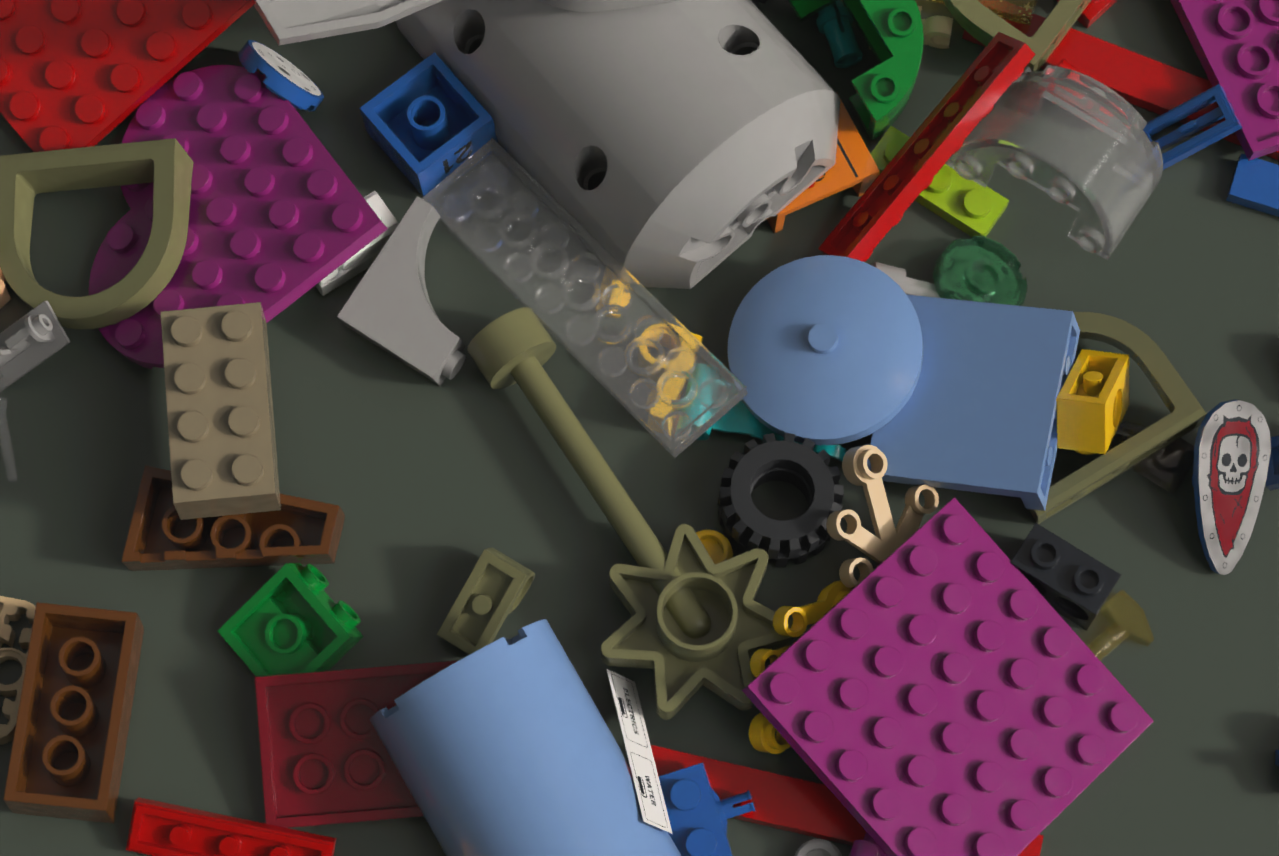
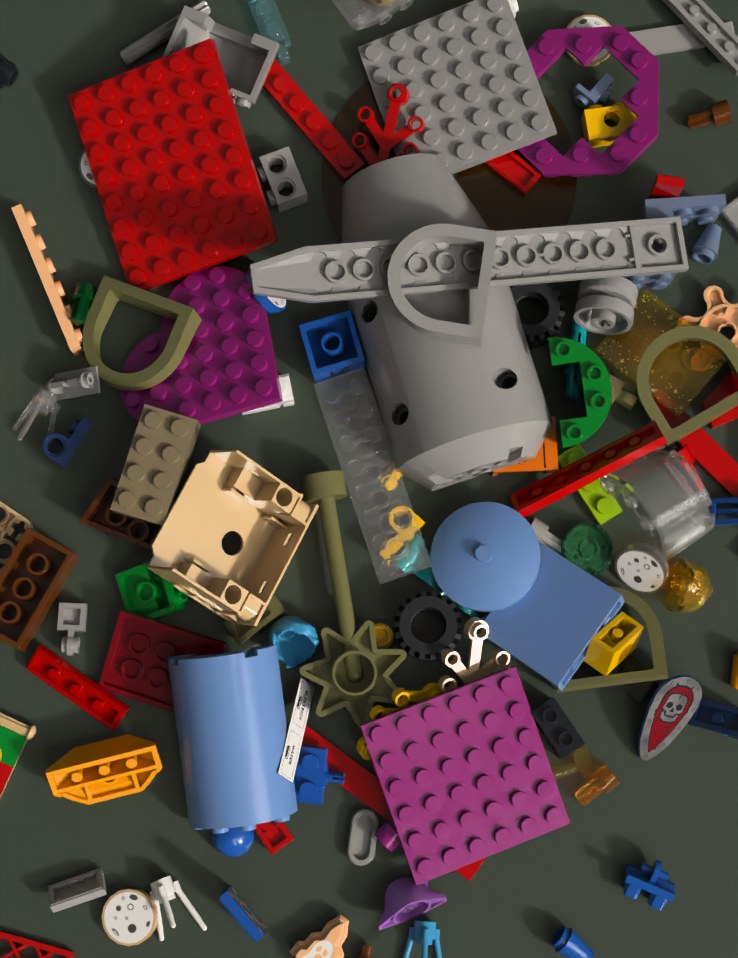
camera: 30 degrees right, 10 degrees up
(48, 450) = (78, 431): none -> dark blue plate
(173, 736) = (71, 618): none -> light grey plate
(394, 305) = (275, 436): light grey arch -> none
(415, 416) = (222, 497): none -> tan piece
(575, 606) = (294, 640): none -> dark azure hair
(1082, 270) = (641, 568): none -> white tile
(1162, 272) = (687, 586): none -> clear yellow cylinder
(1175, 629) = (603, 780): none -> clear orange piece

